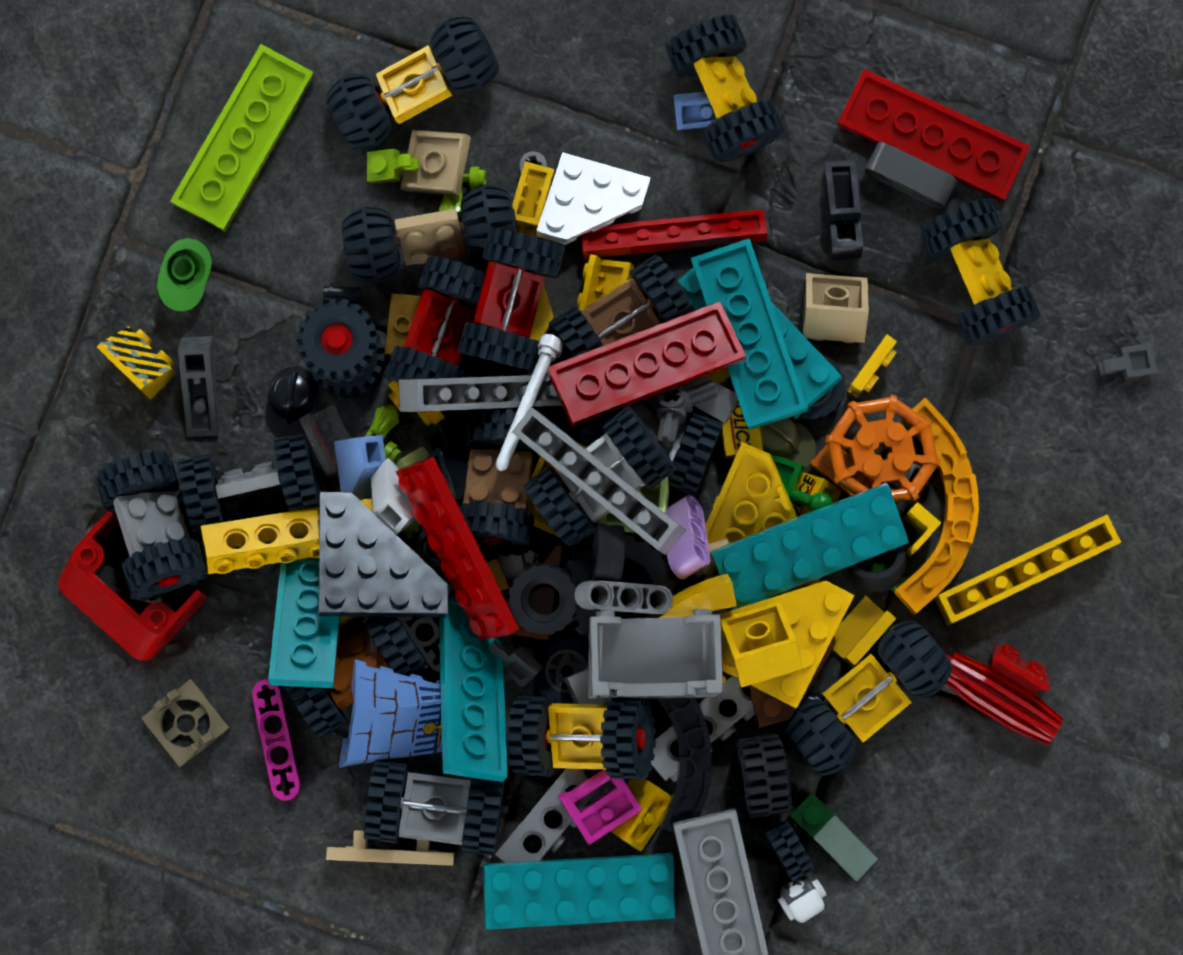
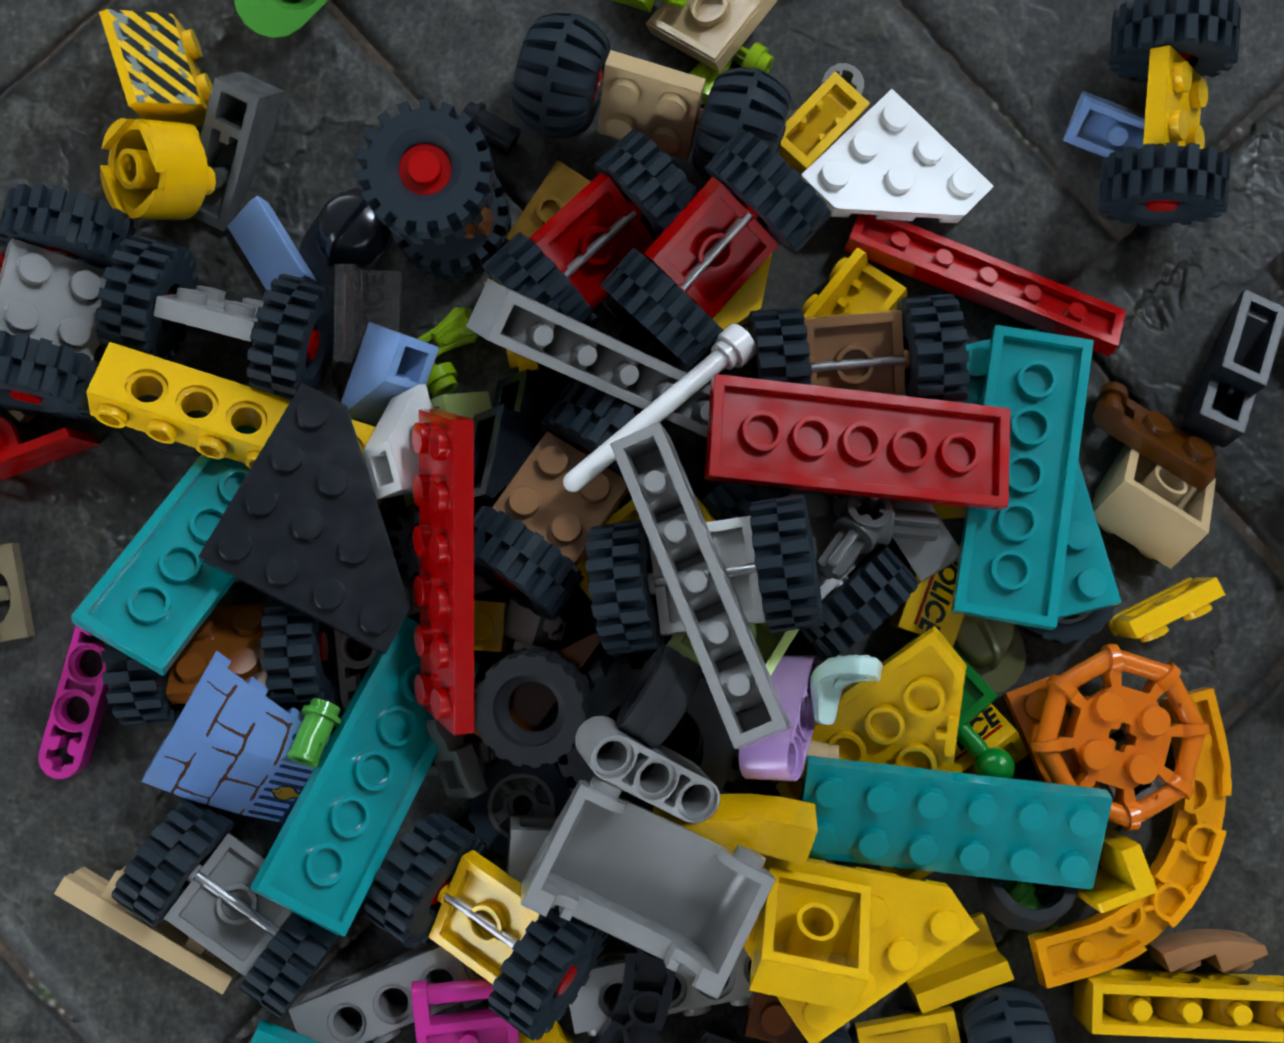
camera: 25 degrees right, 5 degrees up
(167, 418) = (155, 169): none -> yellow brick
(250, 432) = (267, 243): none -> light blue slope
(430, 679) = (314, 732): none -> bright green pin
(703, 498) = (833, 676): none -> light aqua hair
(816, 272) = (1154, 436): none -> reddish brown plate
(1008, 542) = (1221, 948): none -> medium nougat slope

